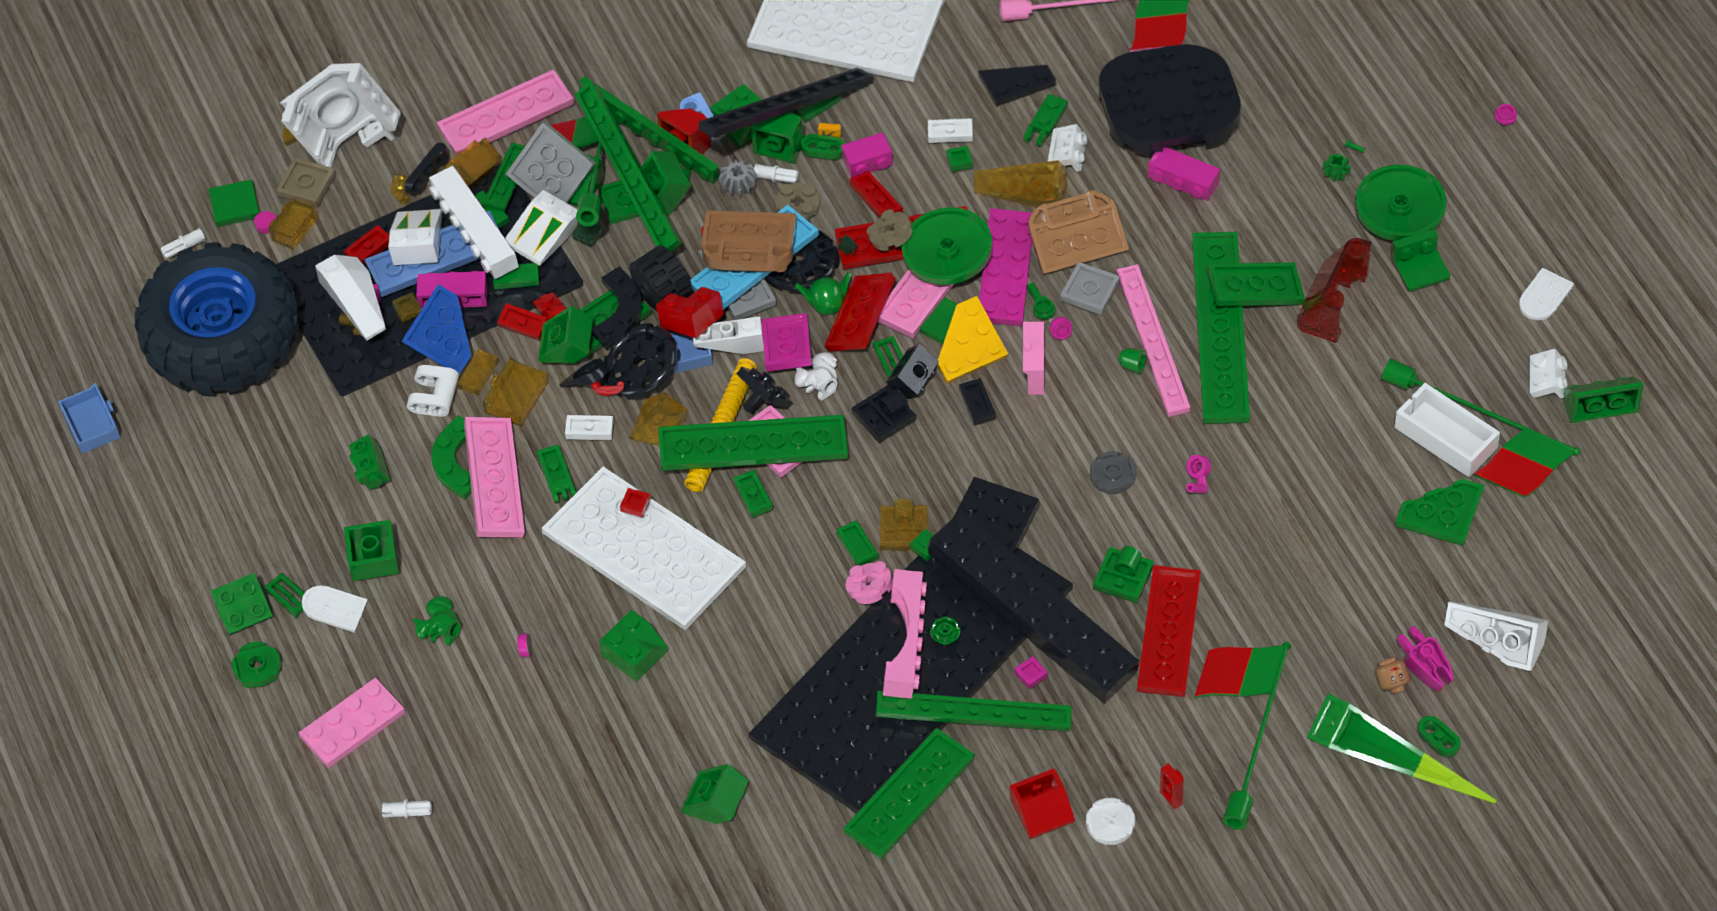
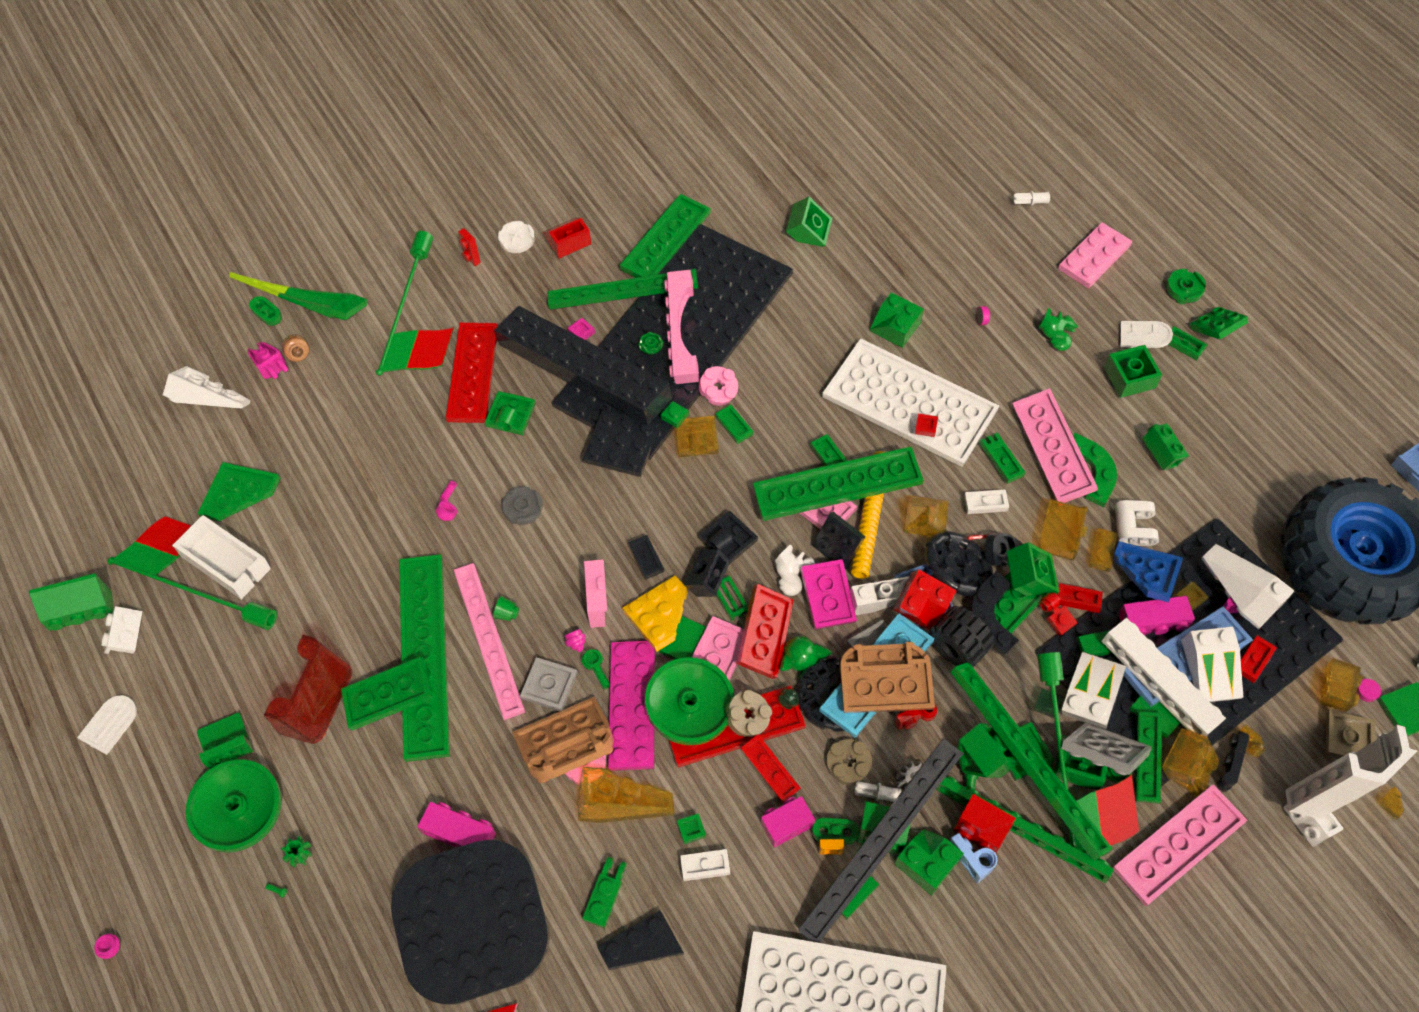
camera: 170 degrees right, 5 degrees up
(1068, 146) = (579, 852): white bracket -> none

